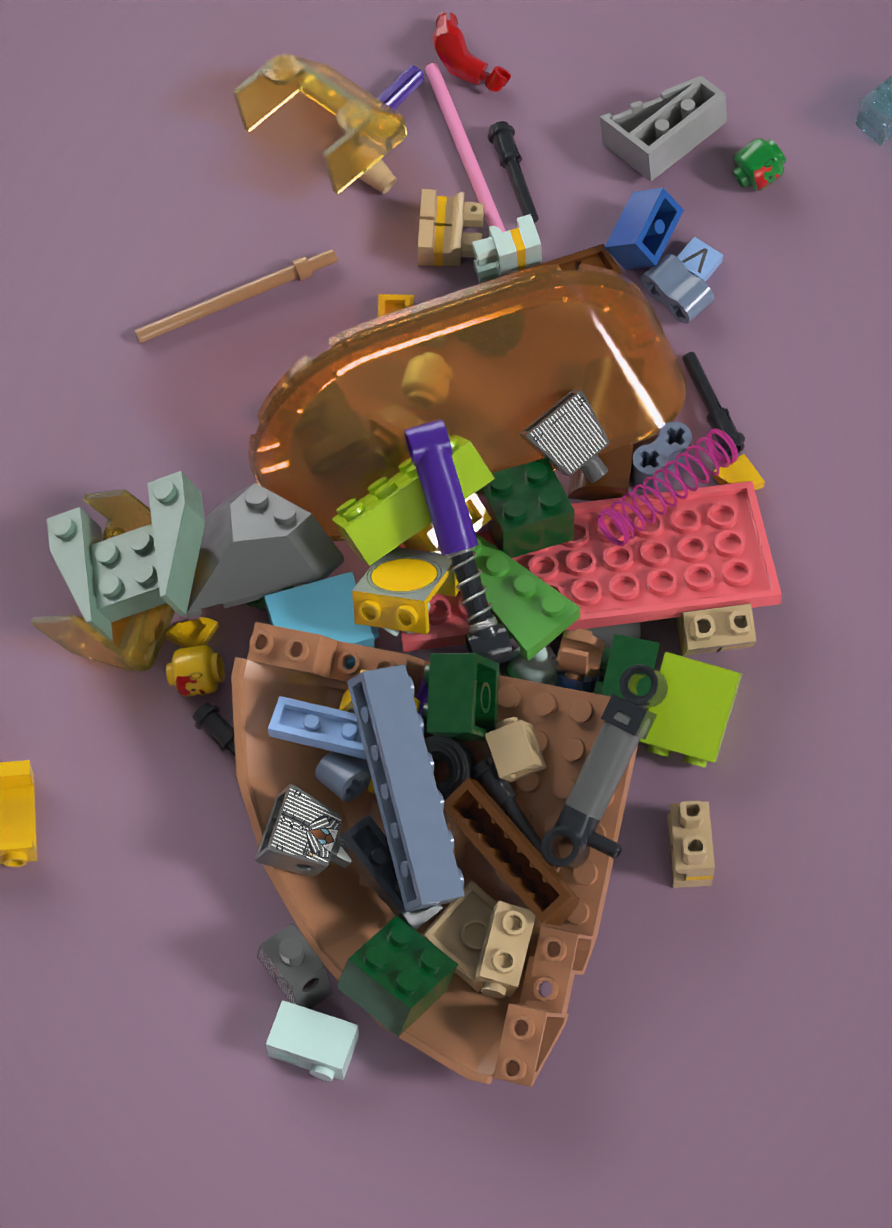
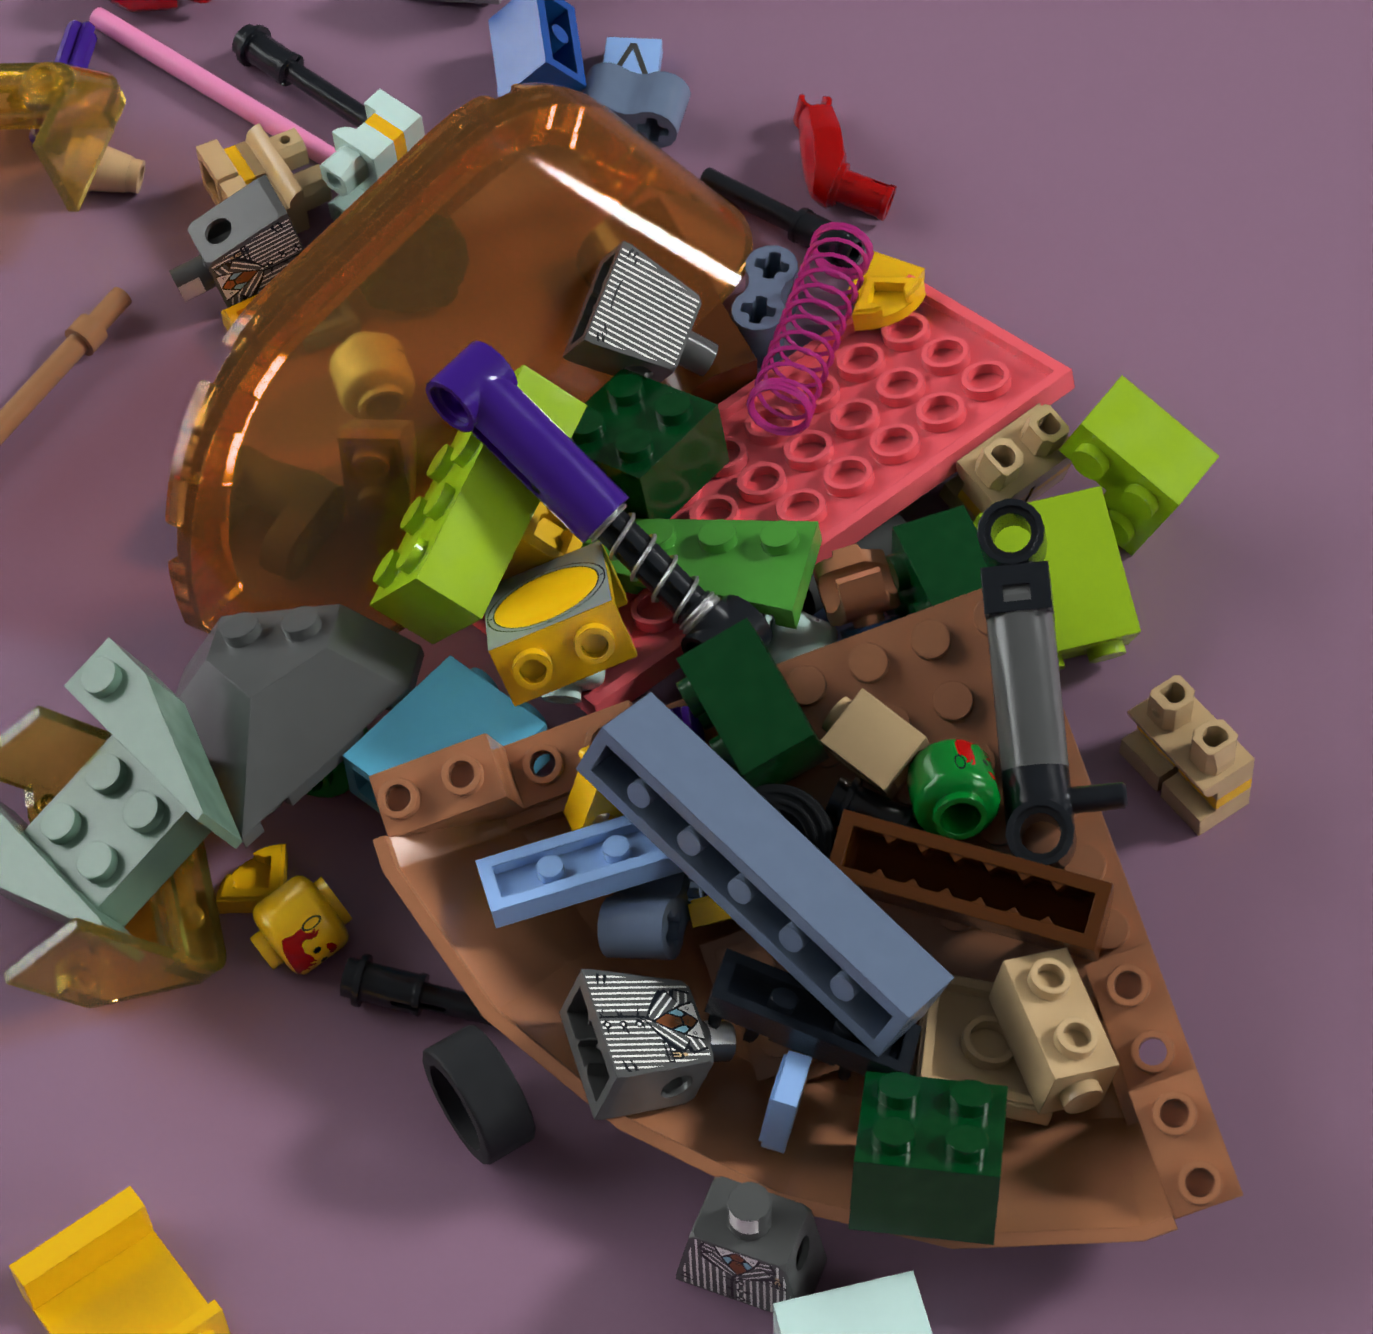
camera: 30 degrees left, 10 degrees down
(217, 812) = (479, 1094): none -> black tyre
(351, 905) = (784, 1101): none -> light blue tile
(409, 267) = (239, 245): none -> dark grey torso
(535, 797) = (953, 789): none -> green head
(723, 489) = (886, 301): none -> yellow tile
(754, 387) = (826, 166): none -> red arm
(774, 667) = (1139, 459): none -> lime brick

